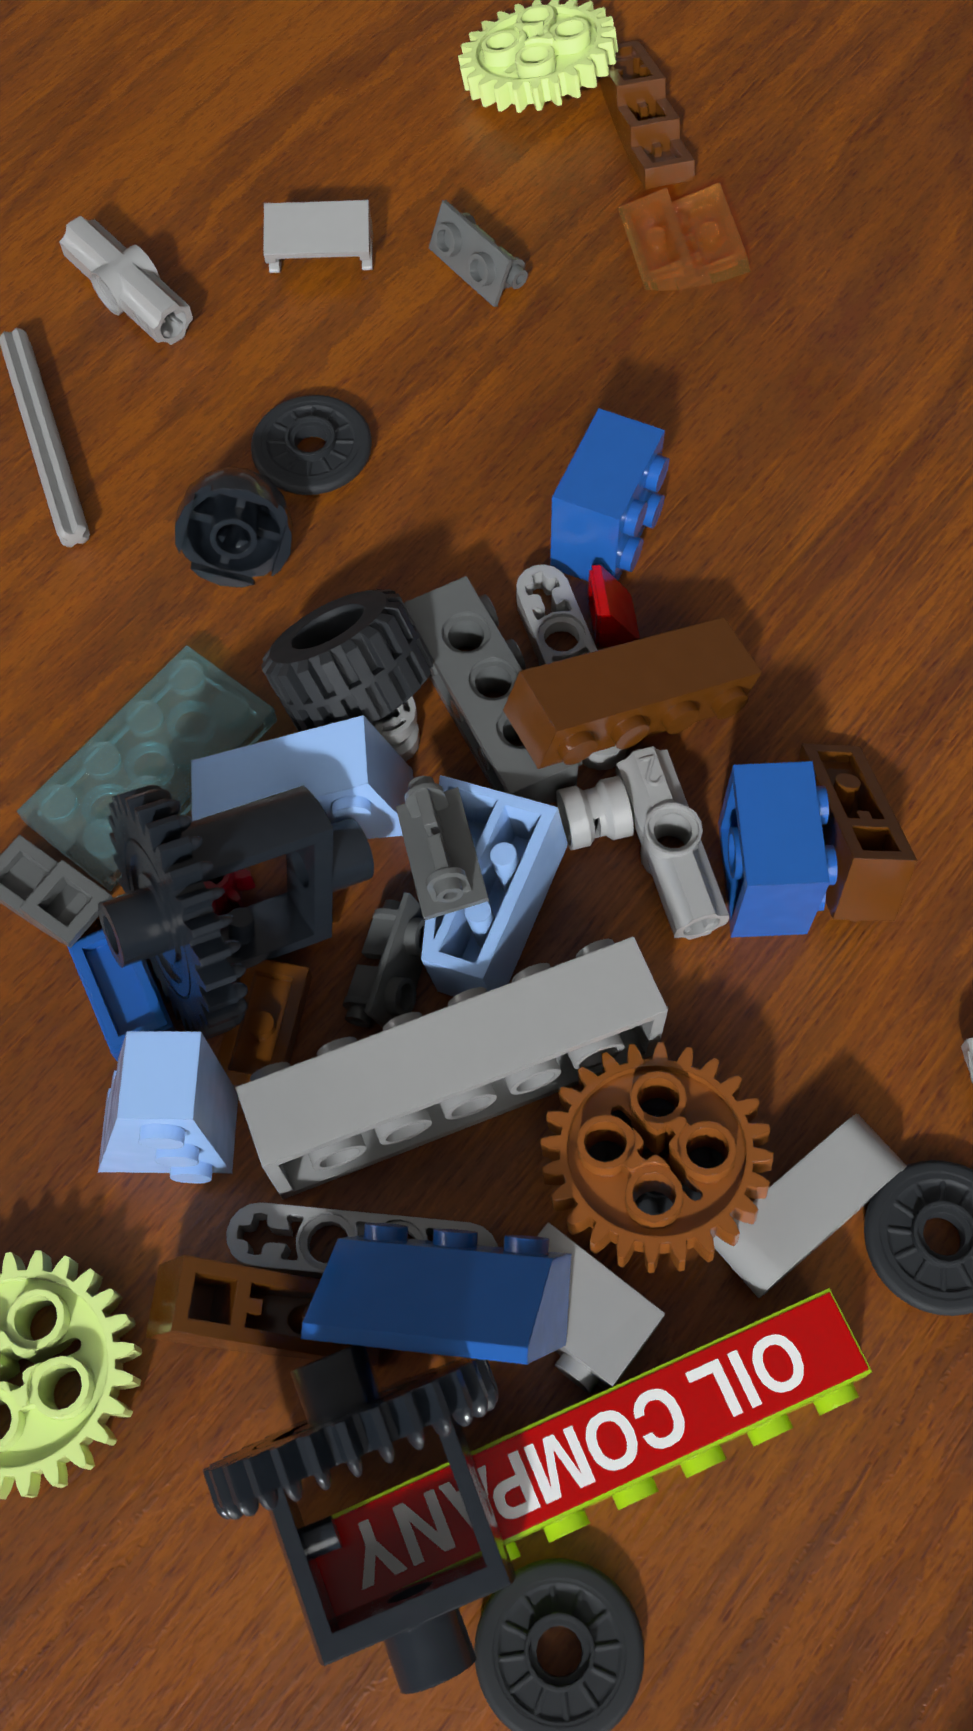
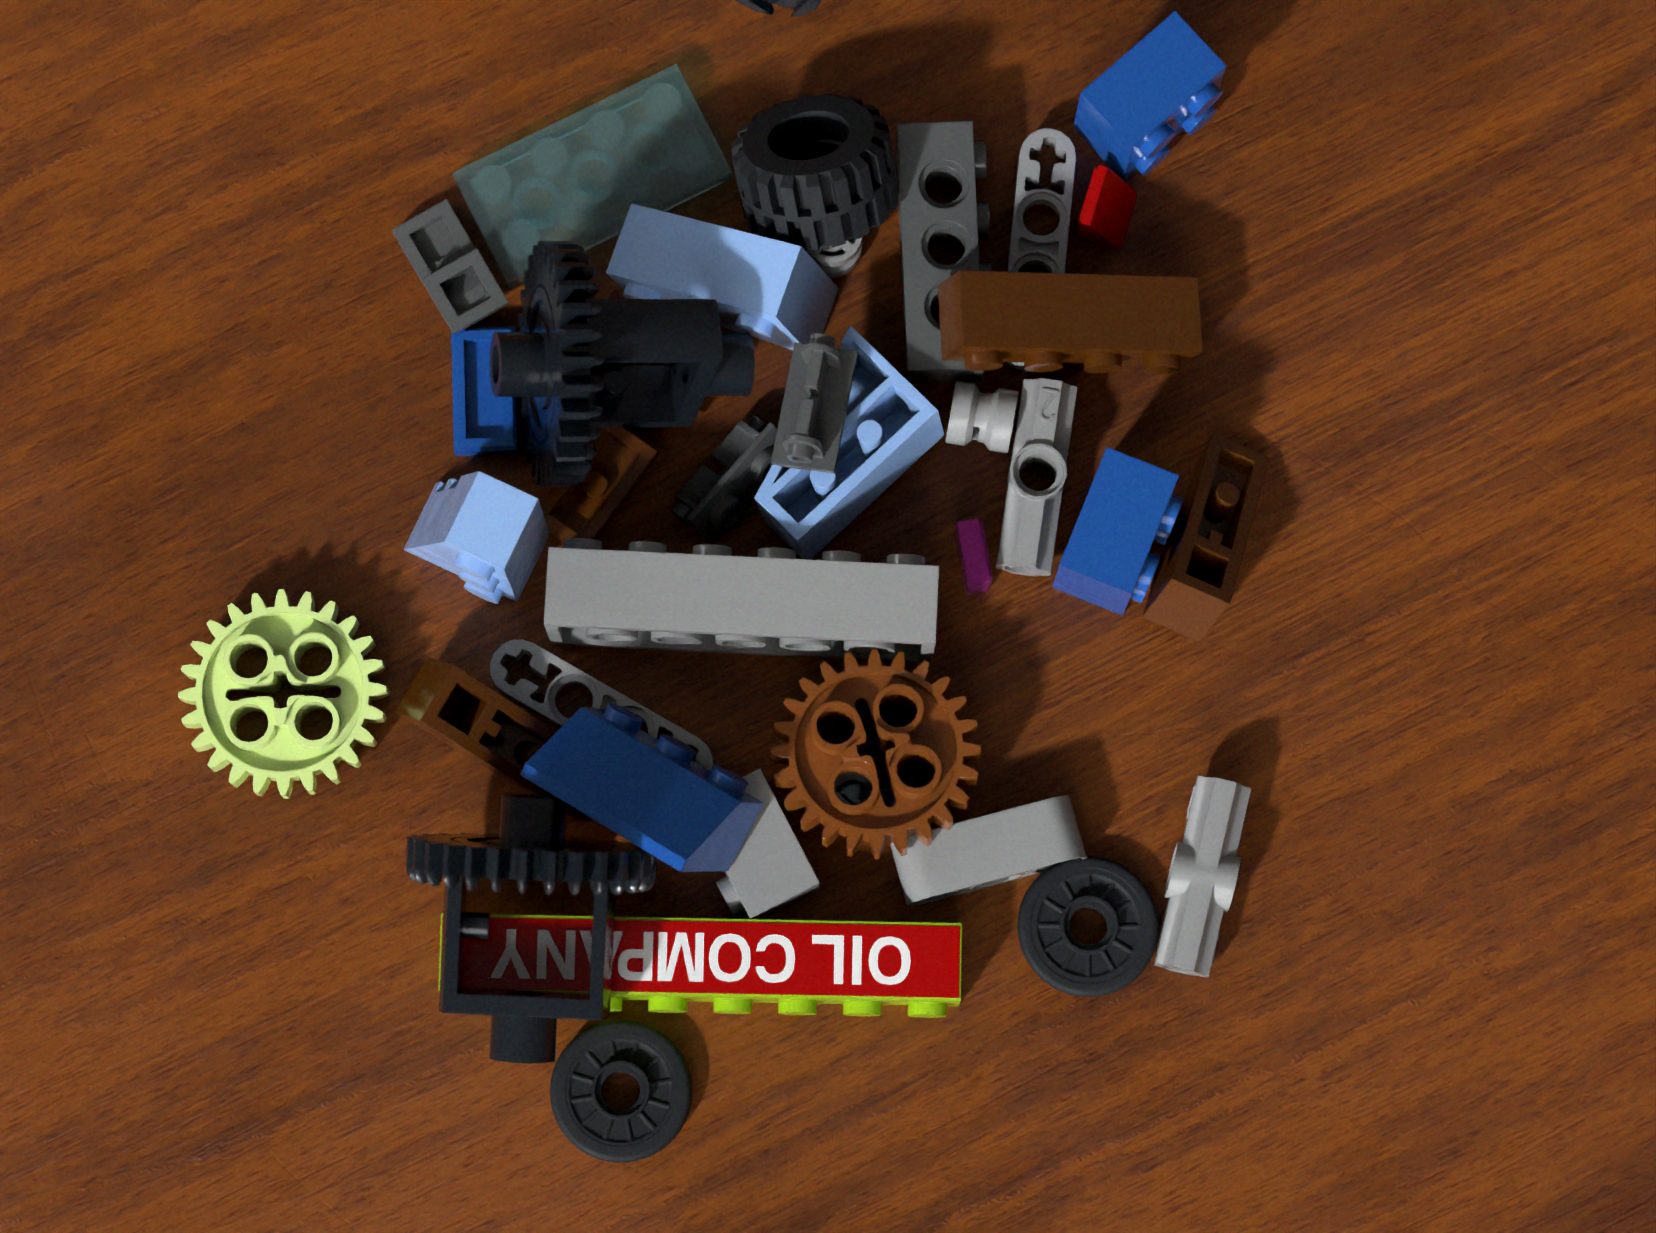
camera: 20 degrees right, 15 degrees up
(652, 933) = (973, 556): none -> magenta tile

